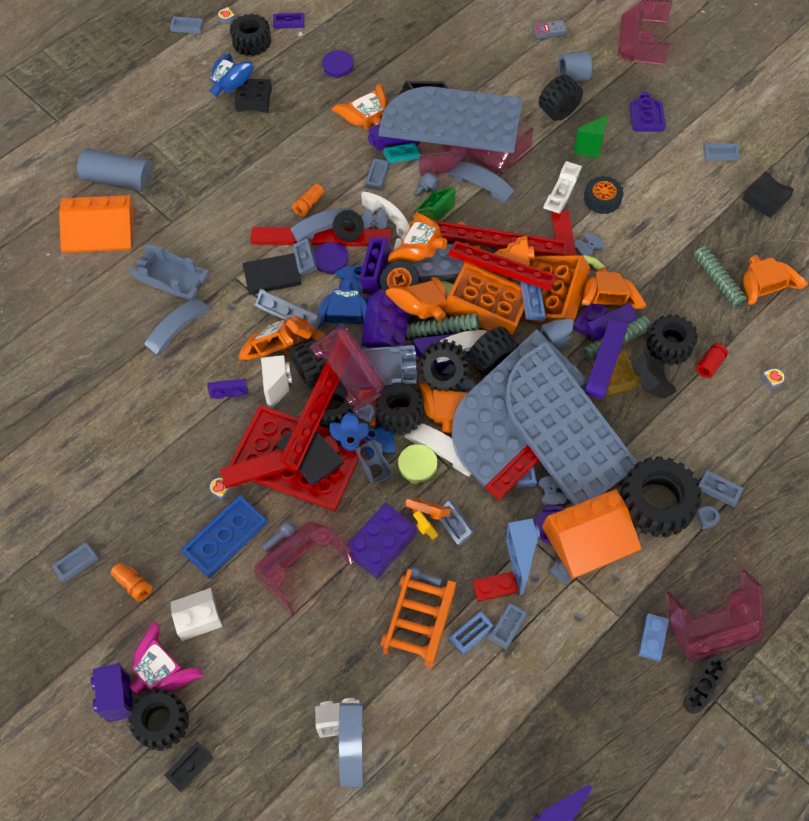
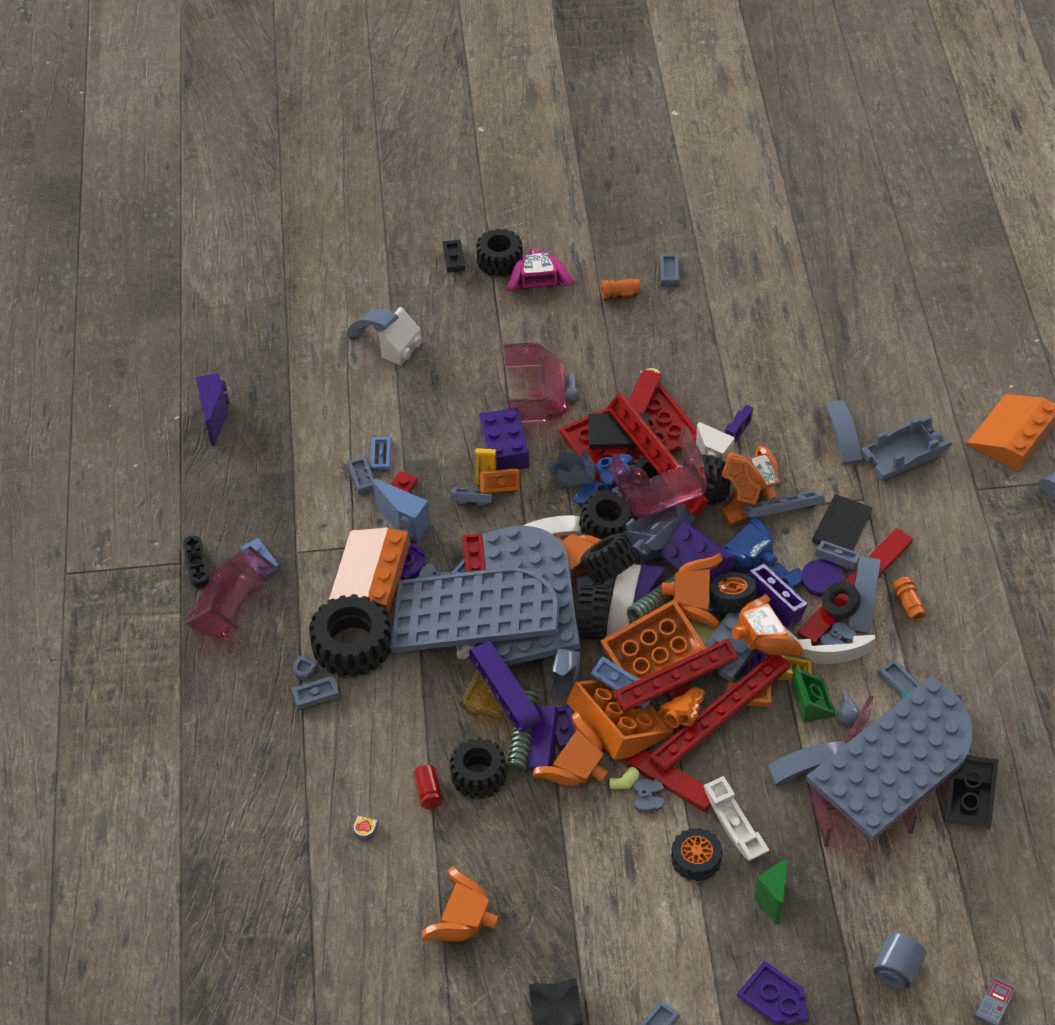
camera: 130 degrees right, 10 degrees down
(112, 692) = (540, 233): dark purple brick -> none
(195, 614) = (558, 309): white slope -> none
(224, 536) = (606, 360): blue tile -> none
(366, 110) = (997, 724): orange torso -> none
(417, 463) = (546, 504): yellowish green tile -> none
(417, 575) = (459, 450): sand blue bar -> none
(434, 632) = (412, 441): orange fence -> none
(560, 97) = (856, 898): black tyre -> none
(652, 376) = (455, 716): black brick -> none
(720, 276) = (506, 874): sand green piece -> none

